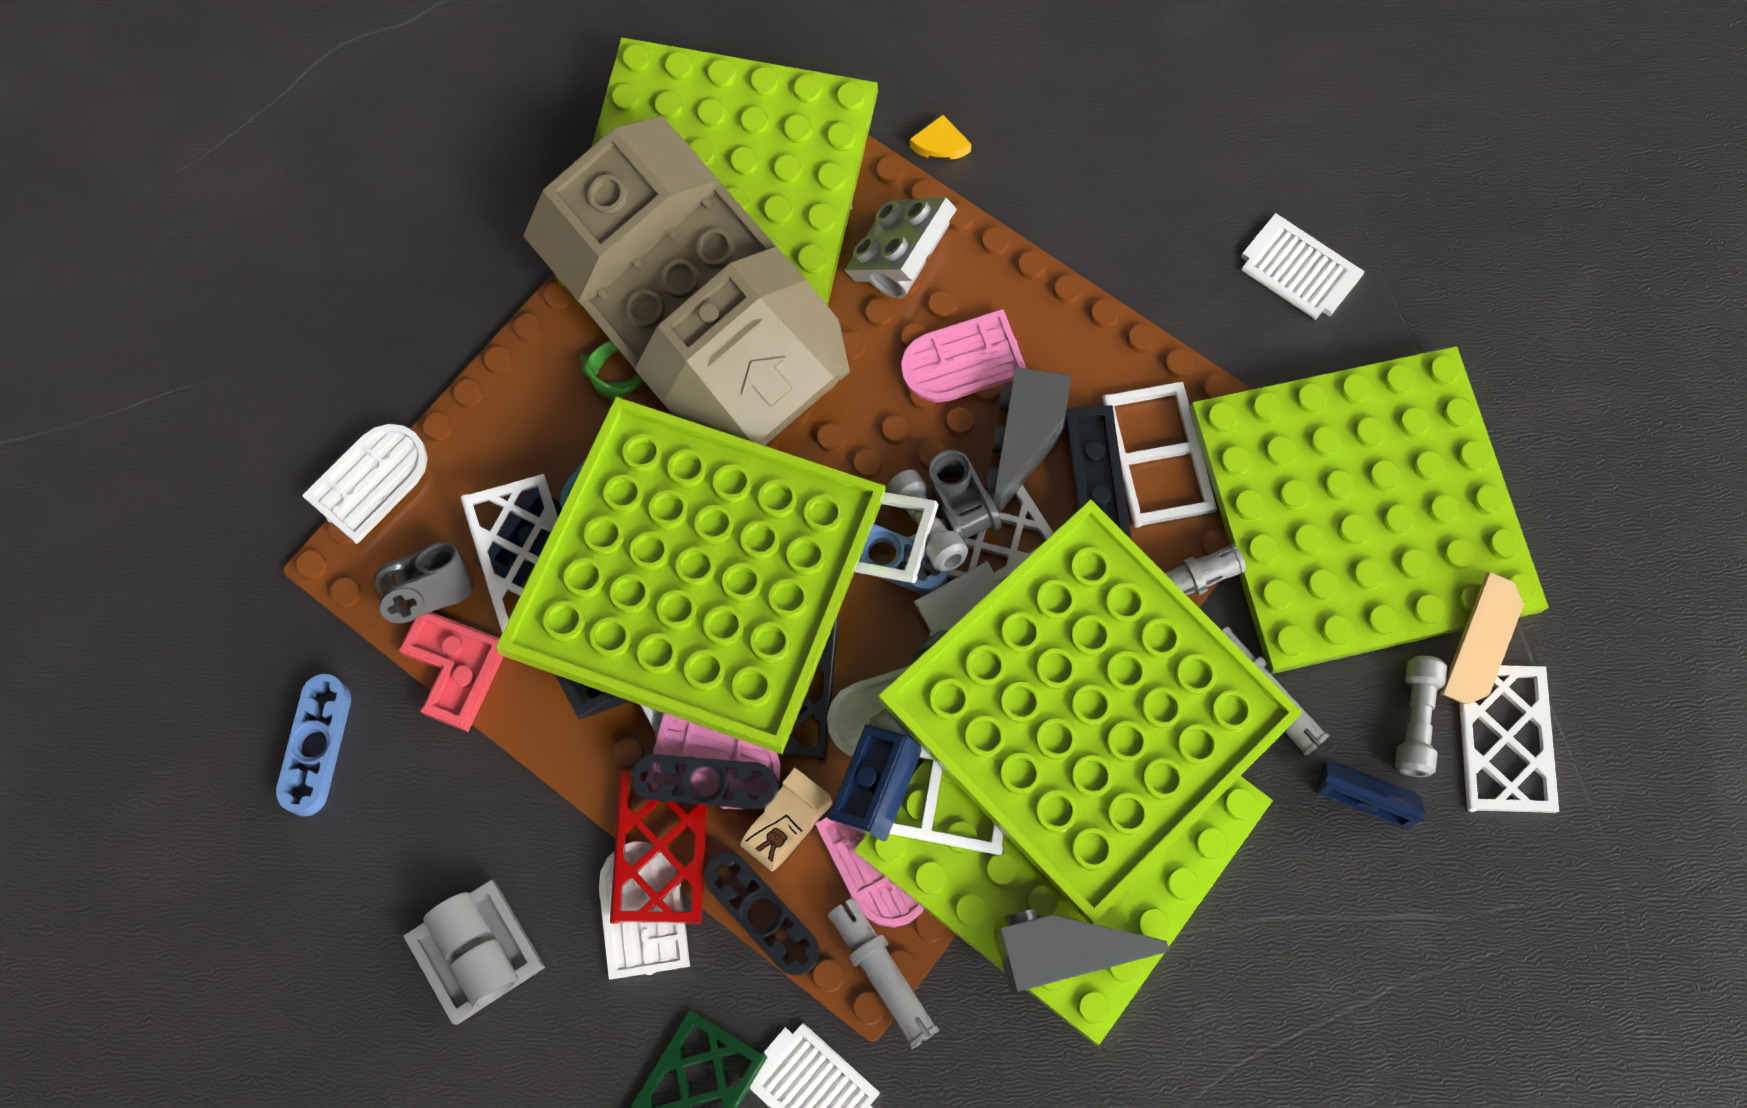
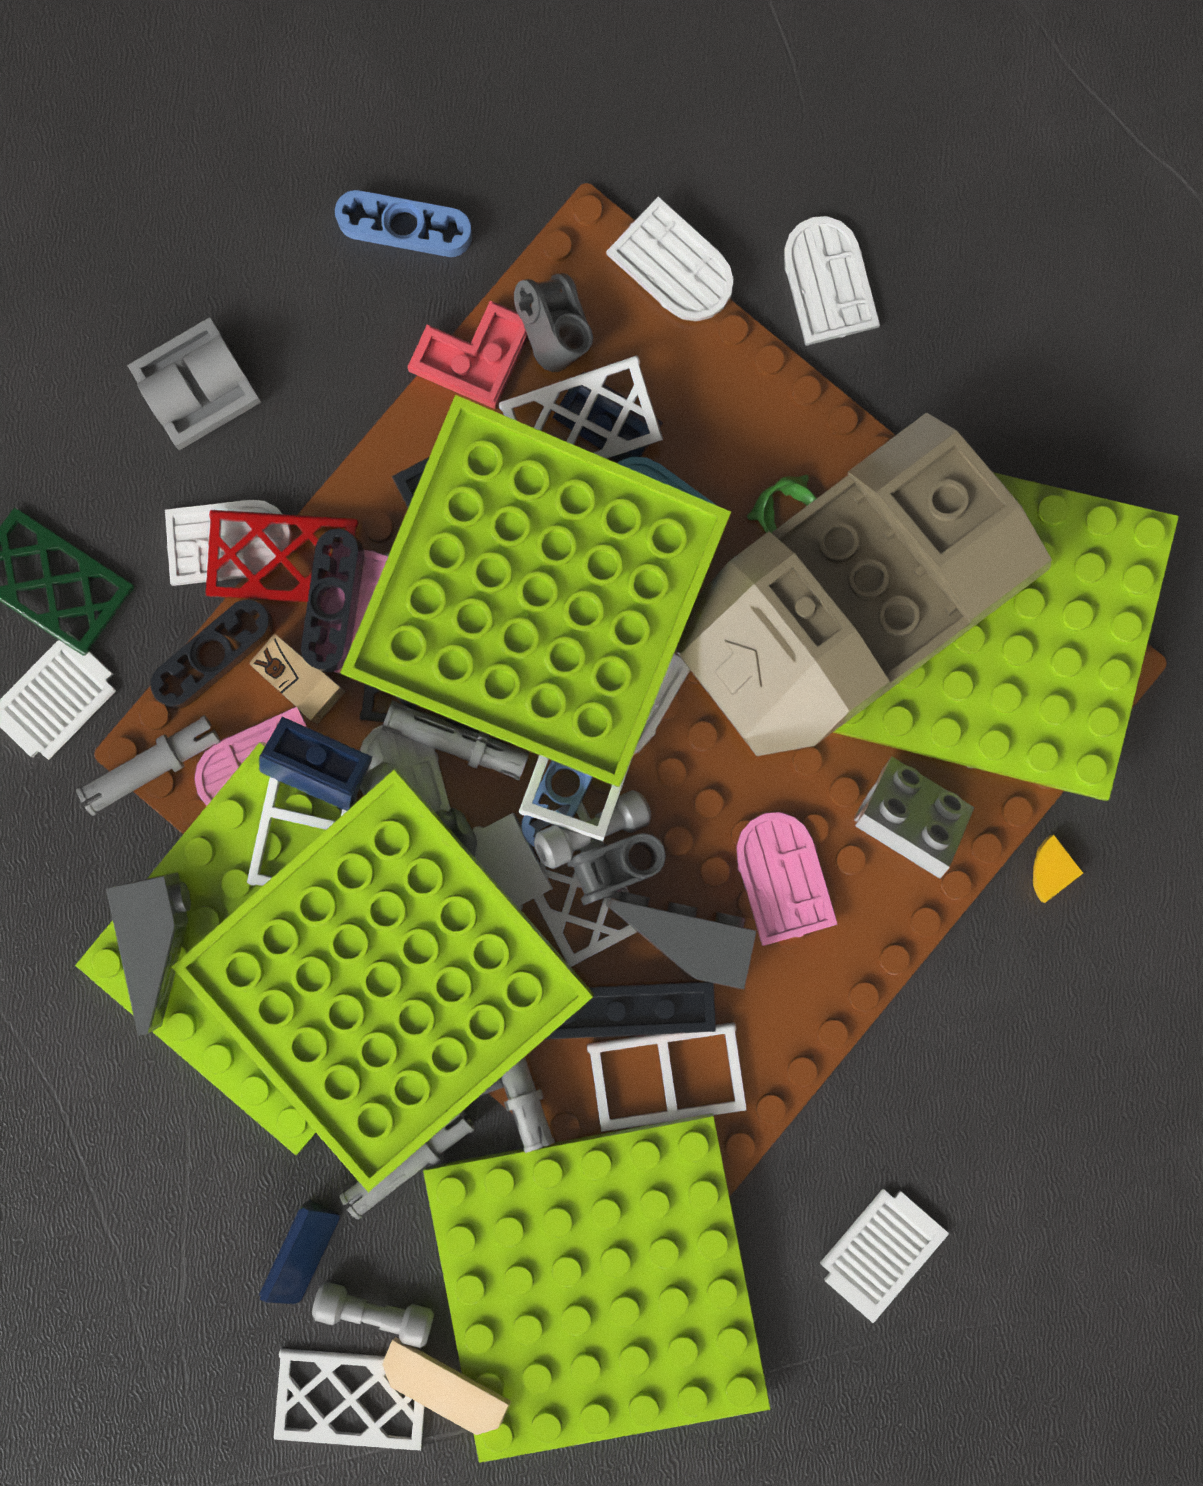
camera: 85 degrees right, 15 degrees up
(393, 348) = (828, 280): none -> white window
(850, 640) = (455, 740): none -> light grey pin

